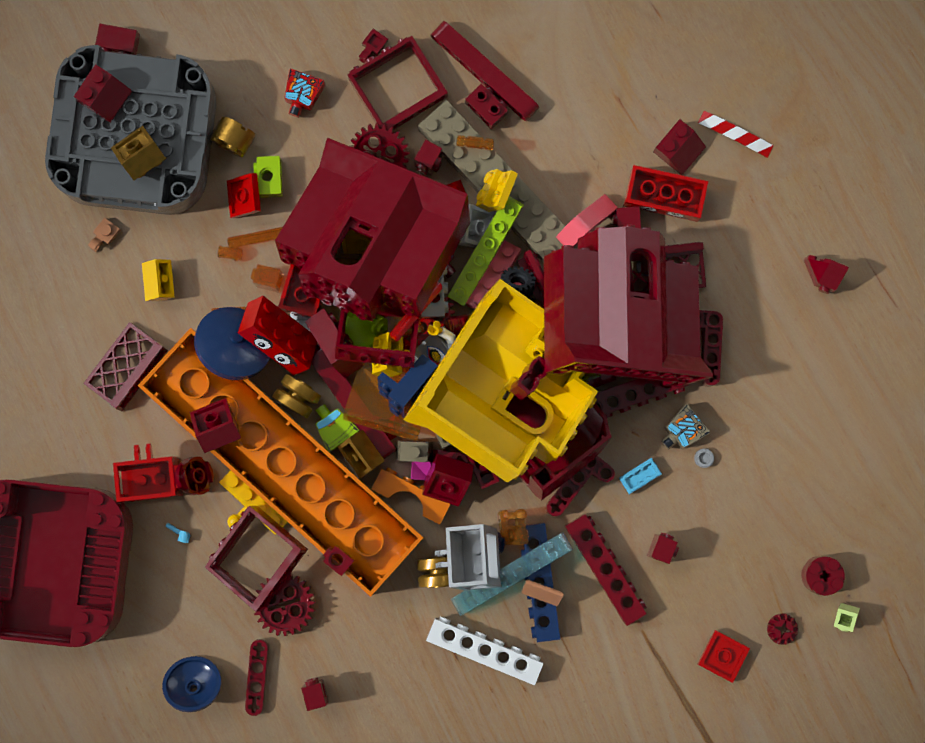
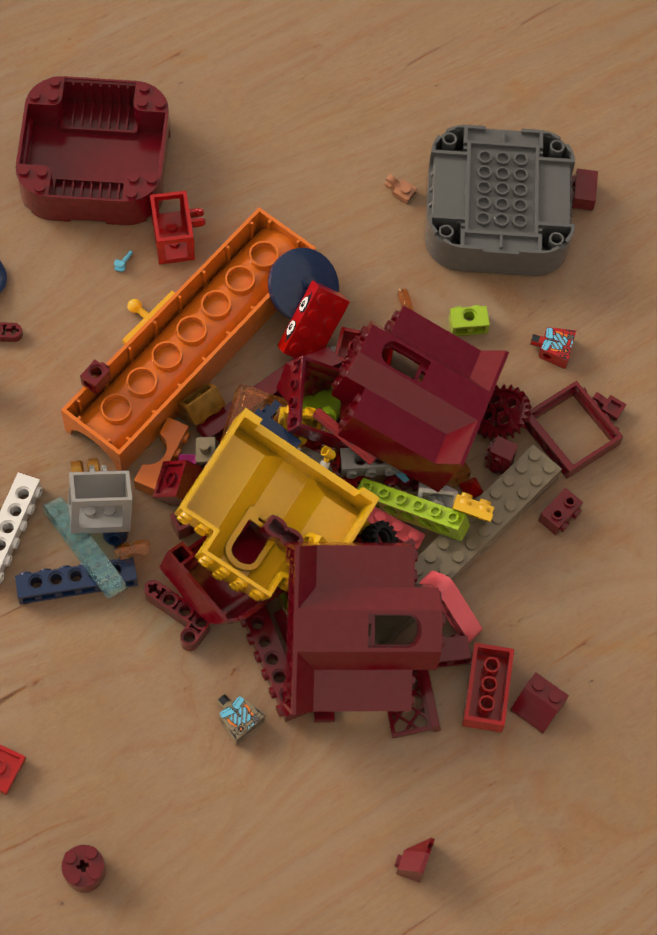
camera: 90 degrees right, 20 degrees down
(102, 93) = (529, 162): dark red slope -> none
(130, 386) = (247, 207): fence -> none
(138, 153) = (475, 193): pearl gold slope -> none
(158, 280) = (361, 231): yellow brick -> none
(194, 476) = (176, 266): dark red cylinder -> none
(215, 425) = (222, 267): dark red slope -> none
(226, 545) = (60, 325): dark red window -> none
(230, 253) = (392, 291): clear orange pin -> none
(232, 136) = (503, 285): pearl gold brick -> none
(243, 195) = (448, 297): red plate -> none
(267, 278) = (369, 312): clear orange brick -> none
(289, 620) = (70, 343): dark red gear -> none
(297, 395) = (256, 348): pearl gold wheel -> none
(333, 427) = (228, 381): lime torso -> none
(475, 142) = (520, 493): clear orange axle -> none
(484, 70) = (596, 509): dark red beam -> none
(542, 592) = (66, 576): nougat slope -> none
(627, 614) = (94, 633): dark red brick -> none
(640, 476) = (188, 675): medium azure plate -> none
(663, 548) = (111, 695): dark red brick -> none
(704, 458) = (209, 741): light grey tile -> none
(707, 348) = (326, 737): dark red beam -> none
(735, 133) = (560, 765): sticker -> none
(775, 634) = (30, 838): dark red gear -> none
(846, 617) = (37, 894): yellowish green brick -> none

